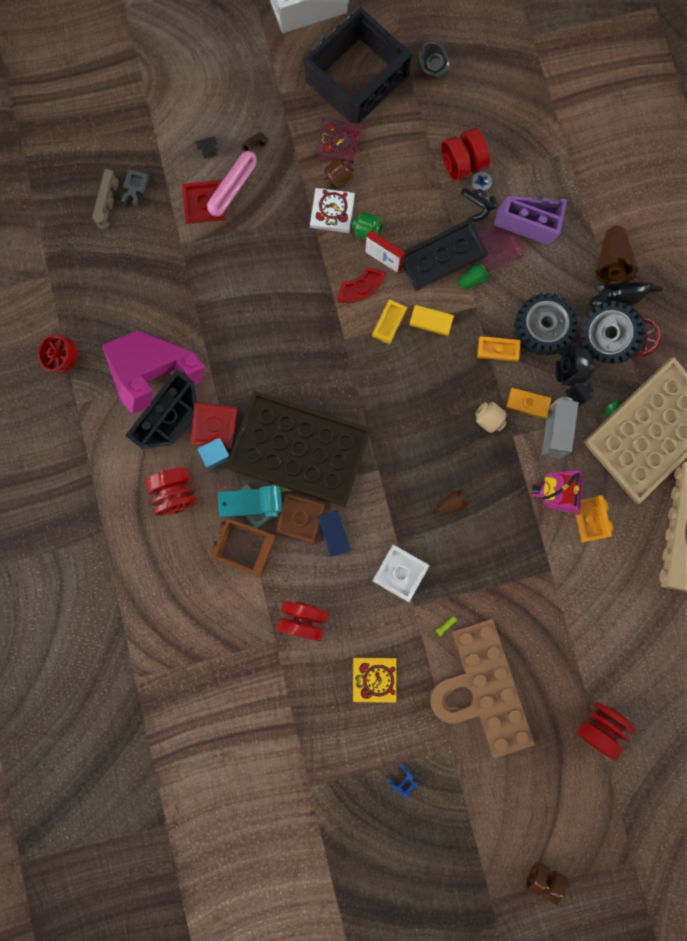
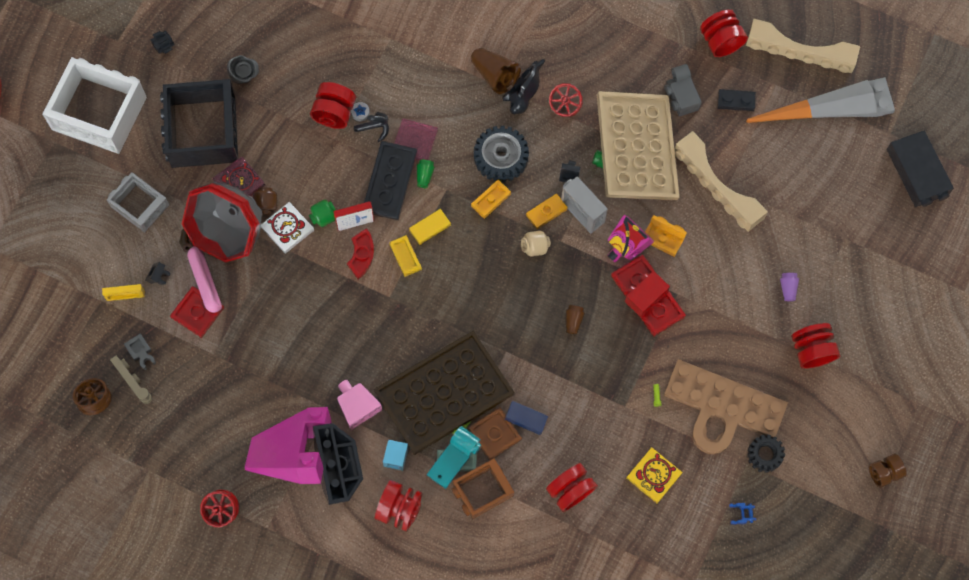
camera: 50 degrees left, 10 degrees down
(65, 178) = (91, 396): none -> reddish brown wheel
(170, 133) = (123, 292): none -> yellow tile
(213, 422) = (372, 437): red tile -> none
(230, 387) = (357, 404): none -> bright pink torso
(252, 97) = (150, 214): none -> light grey window
(289, 152) = (222, 221): none -> rock
(400, 573) = (593, 396): white tile -> none
(459, 761) = (774, 445): none -> black tyre
(527, 546) = (647, 293): none -> red brick
(528, 547) = (664, 312): none -> red tile
(532, 218) = (419, 100): medium lavender wedge -> none
(574, 366) = (547, 159): black cylinder -> none
(629, 332) = (562, 115): wheel -> none
(642, 663) = (789, 286): none -> medium lavender cone

